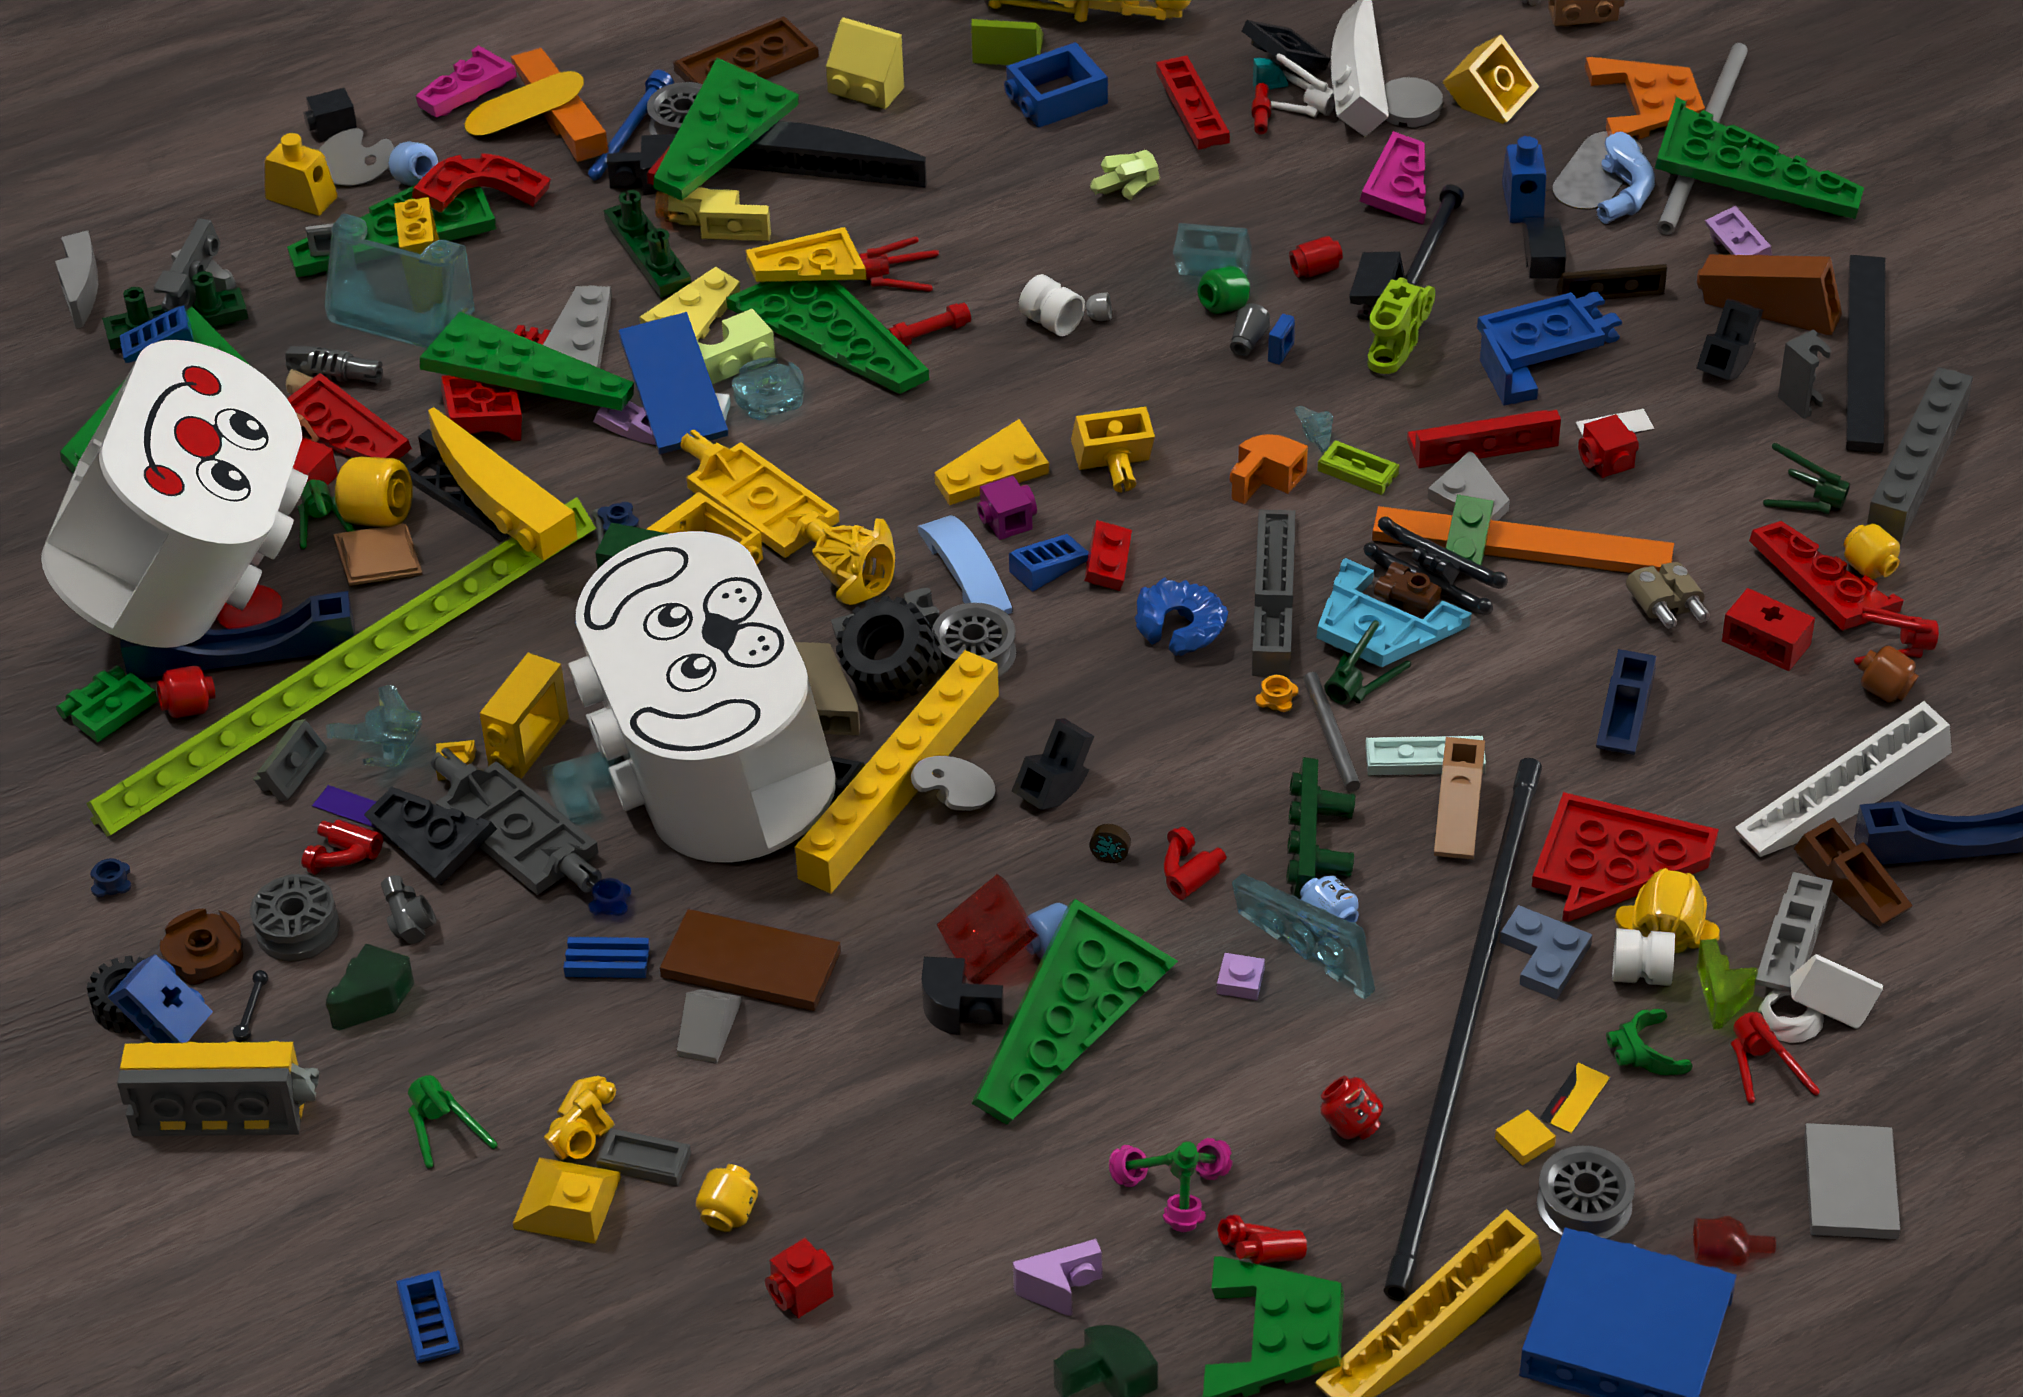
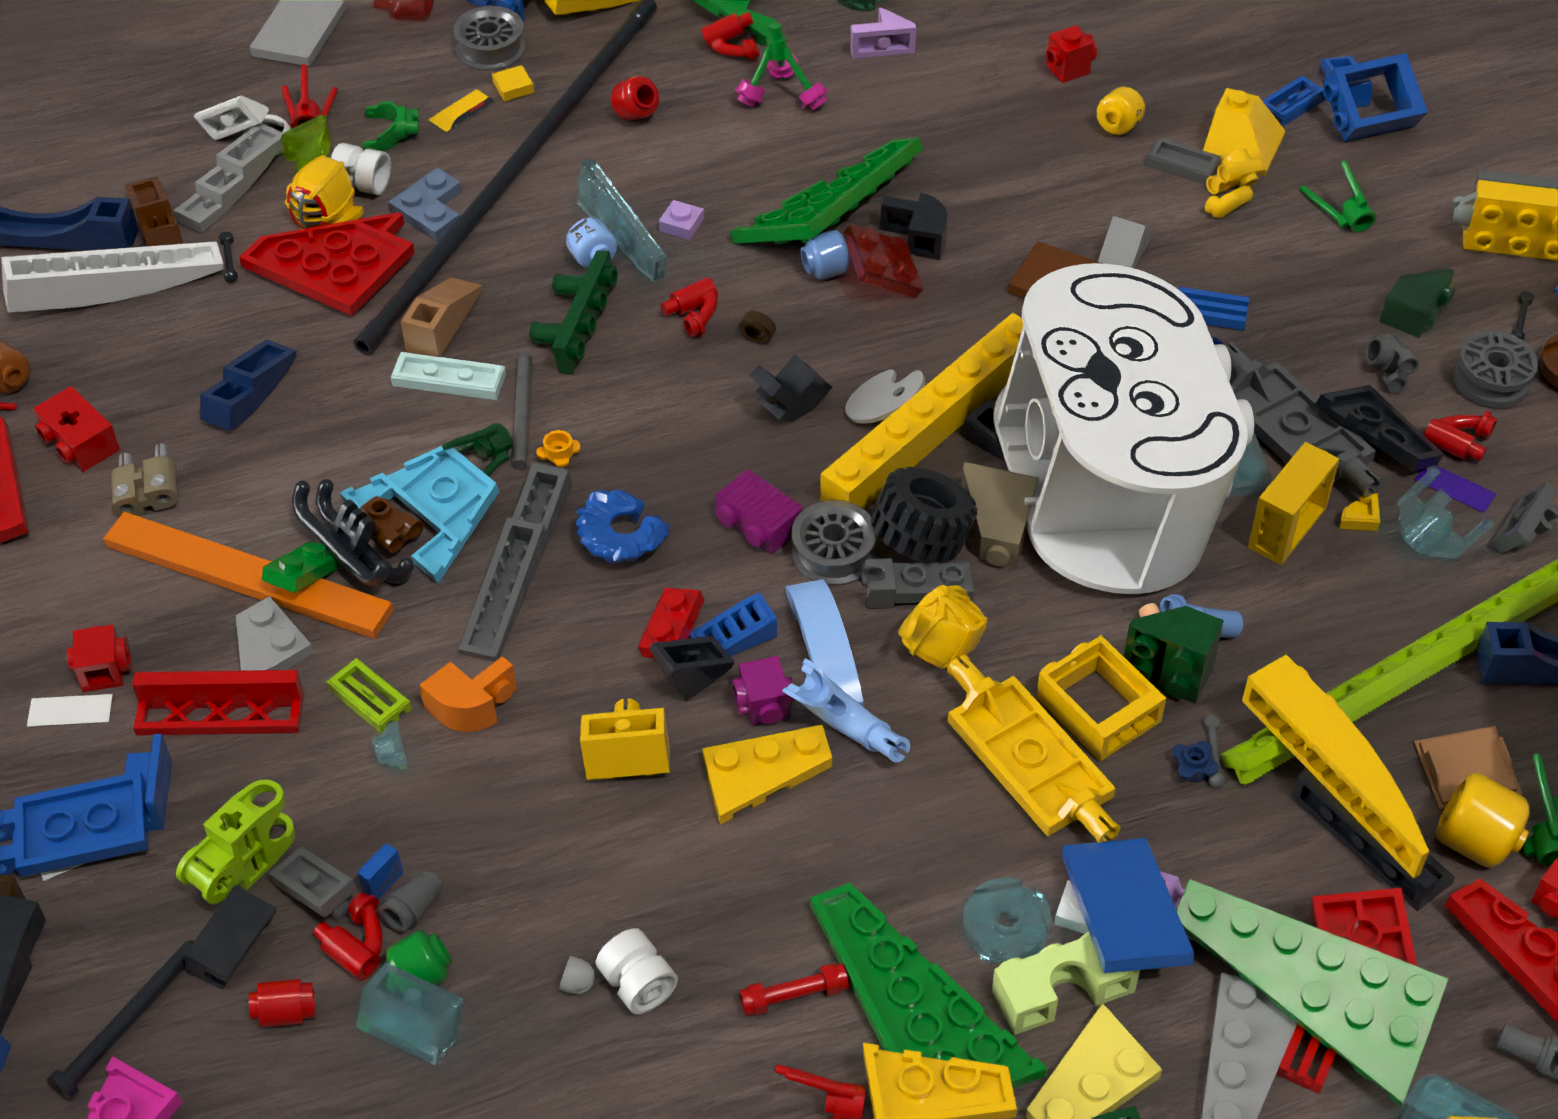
camera: 170 degrees left, 5 degrees up
(397, 1248) = (1402, 87): none -> blue window
(508, 1278) = (1297, 103): none -> blue tile
(956, 484) = (845, 714): none -> light blue piece
(1054, 654) = (757, 511): none -> magenta brick
(1079, 507) = (692, 663): none -> black slope
(1289, 298) = (355, 956): none -> red plant
(1330, 321) = (314, 883): none -> dark grey plate
(1757, 874) = (227, 239): none -> black hinge

